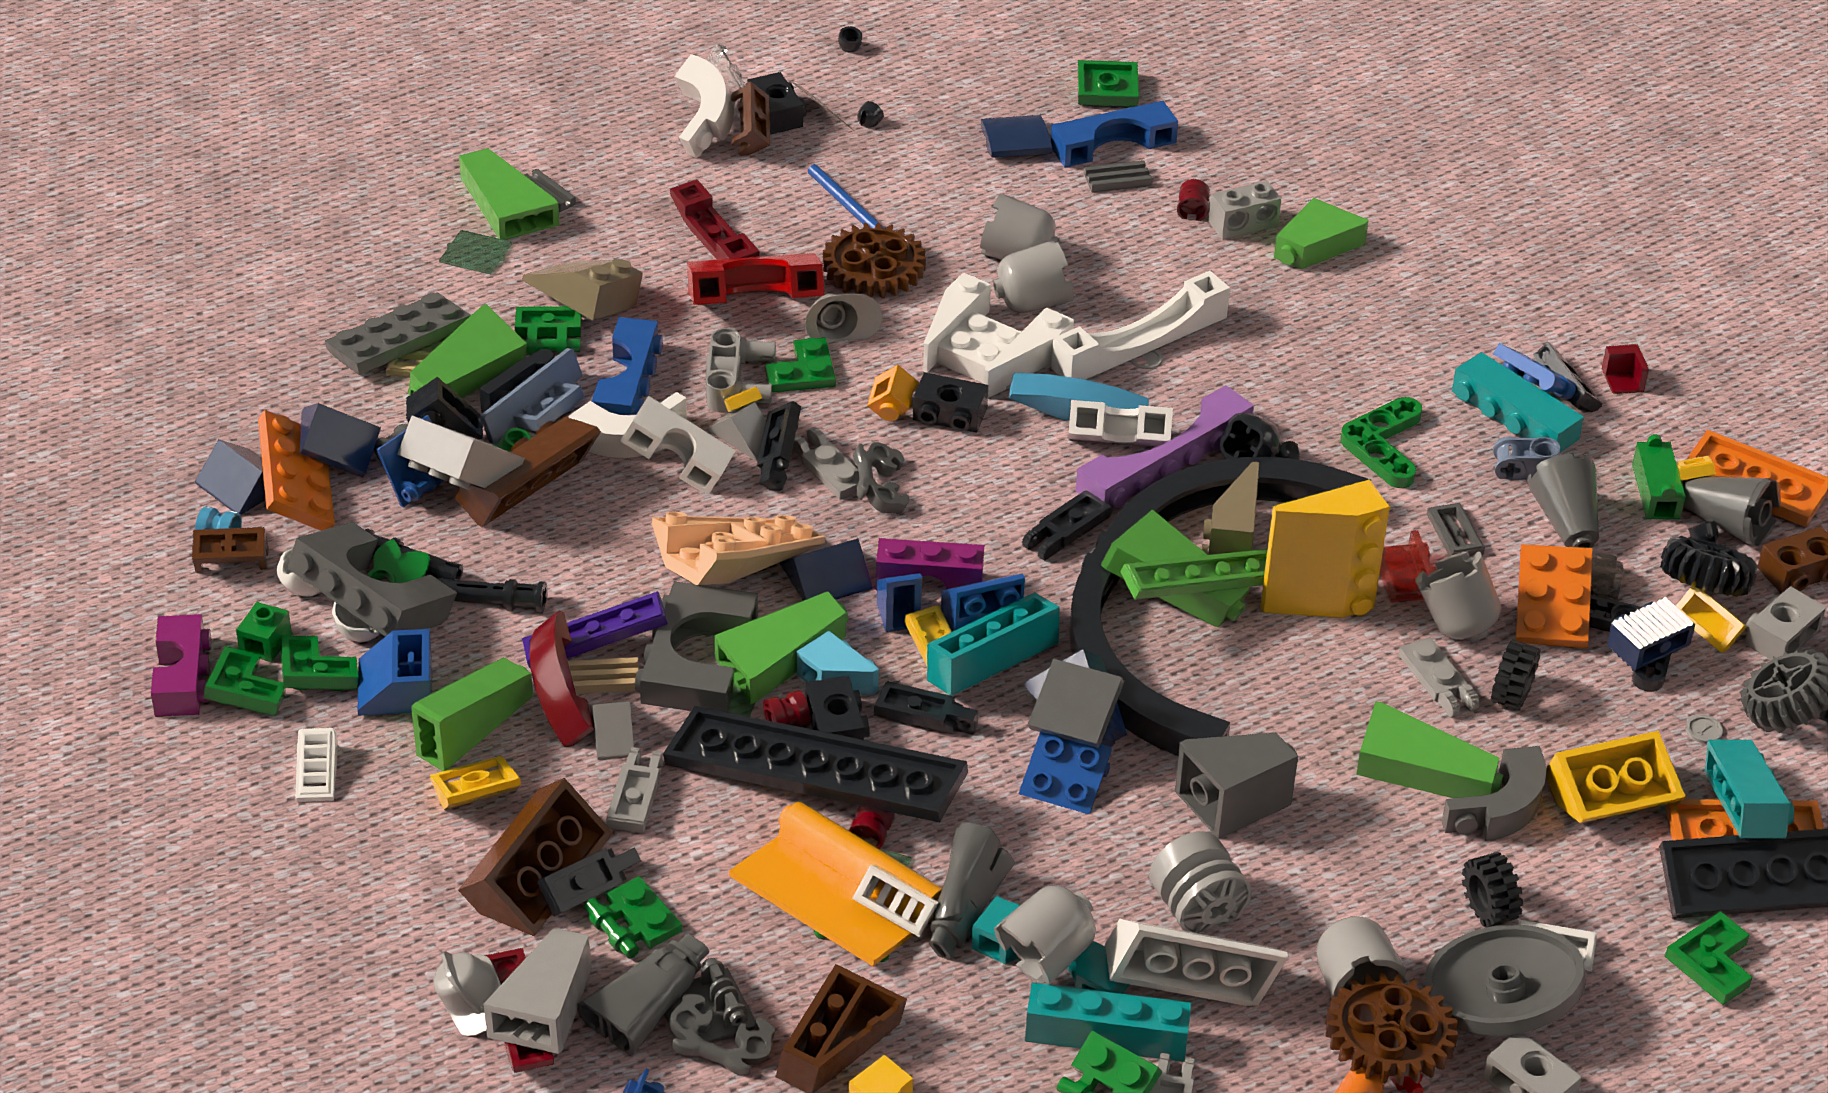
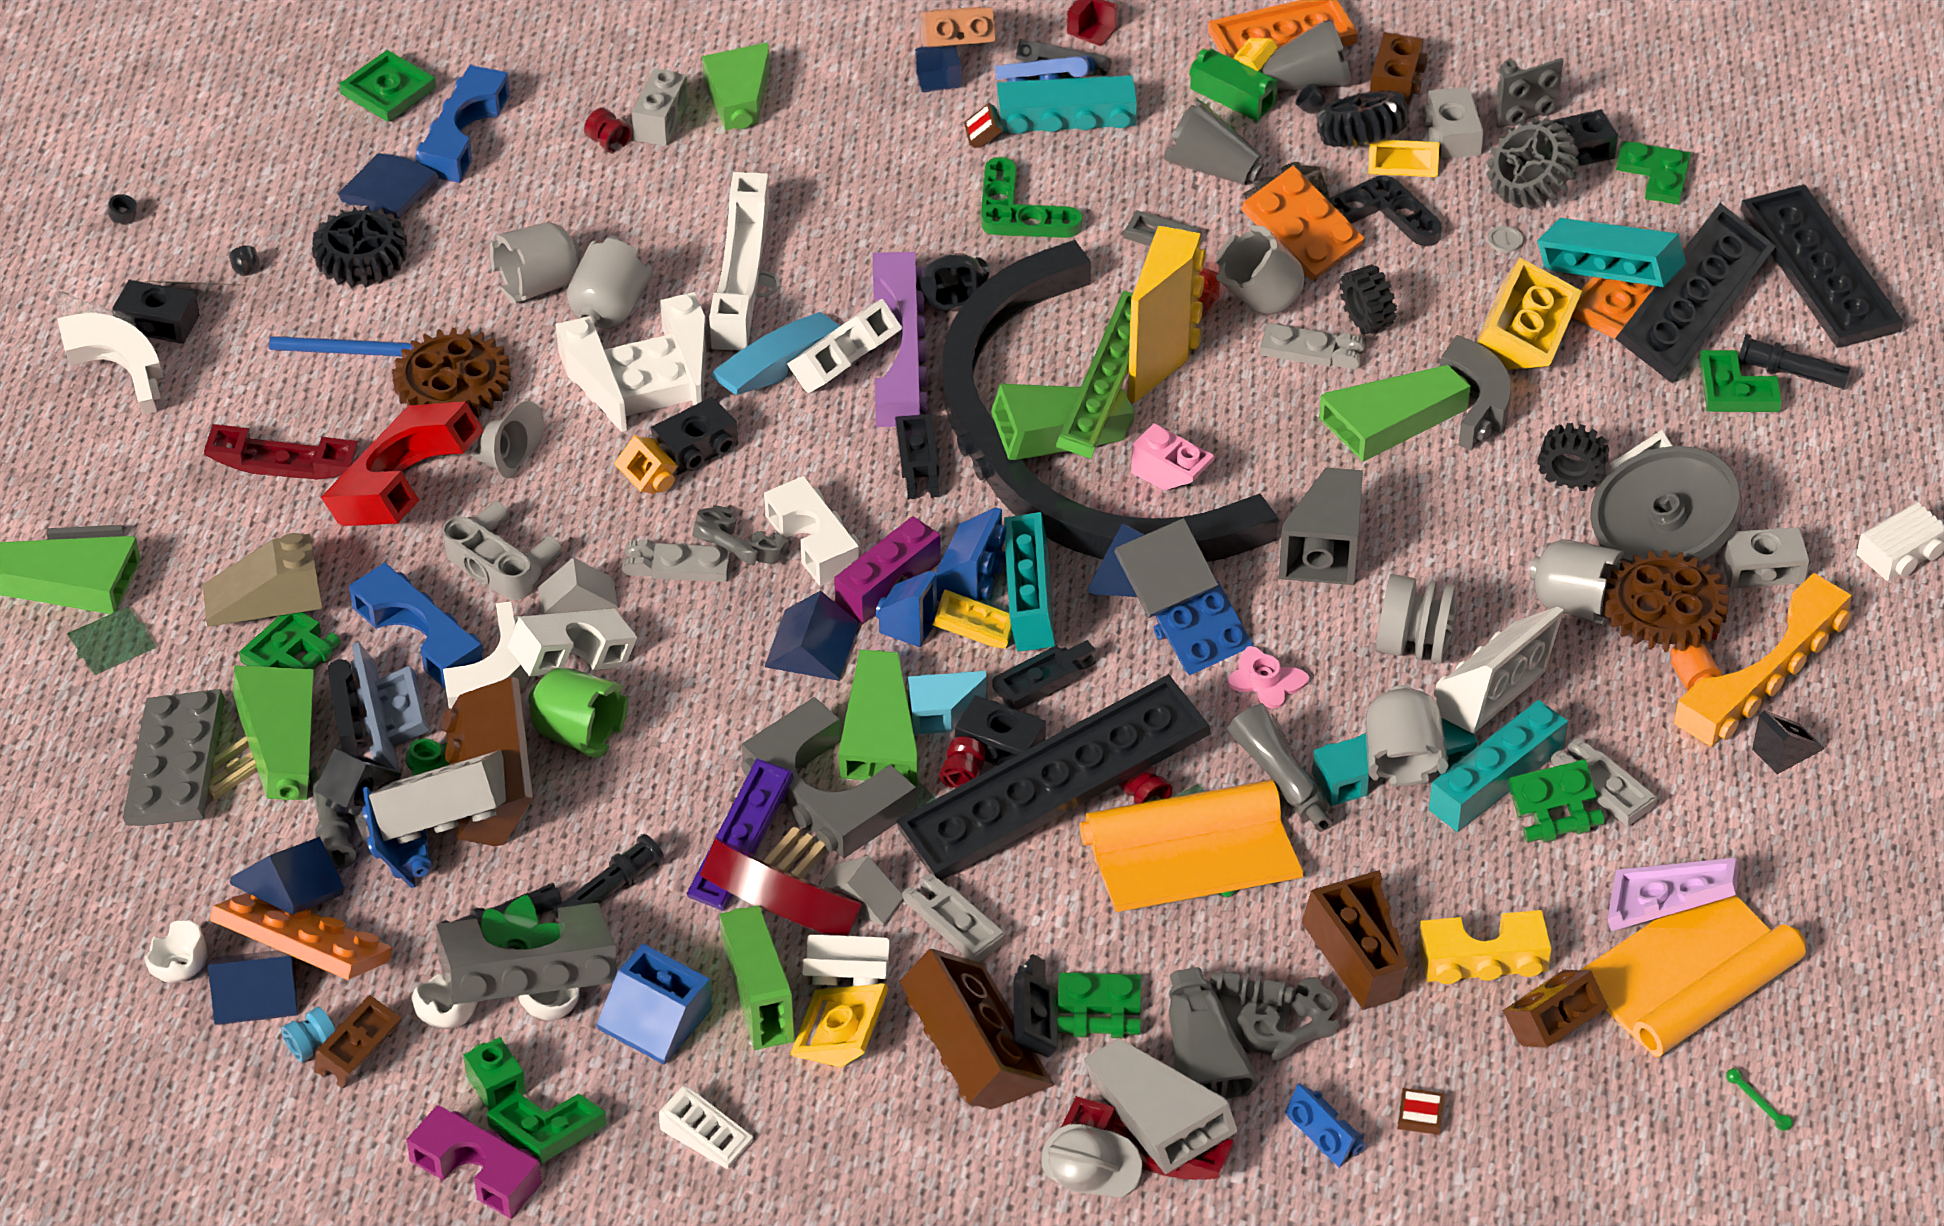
camera: 50 degrees left, 5 degrees up
(229, 427) = (182, 944): none -> white hair
(306, 669) = (576, 1068): green plate -> none
(534, 751) = (846, 956): none -> white bracket
(622, 486) = (577, 710): none -> bright green cylinder
(729, 547) = (728, 682): light nougat wedge -> none
(742, 399) = (554, 565): yellow tile -> none
(753, 119) = (173, 340): reddish brown hinge -> none
(778, 445) = (629, 576): black hinge -> none
(809, 371) = (541, 501): green plate -> none
(867, 886) = (1230, 822): white slope -> none
(936, 494) = (802, 509): none -> white arch
(941, 154) = (359, 246): none -> black gear
(1060, 839) = (1266, 678): none -> bright pink animal
(1117, 176) = (538, 145): dark grey tile -> none
(1211, 650) = (1167, 458): none -> bright pink slope
(1233, 516) = (1045, 344): dark tan slope -> none
(1437, 376) = (983, 126): none -> reddish brown tile
(1470, 320) = (937, 68): none -> dark blue panel
(1508, 299) = (942, 26): none -> nougat window
(1524, 457) = (1131, 138): sand blue piece -> none
(1650, 633) = (1402, 197): brick -> none
(1776, 967) = (1775, 358): none -> black pin

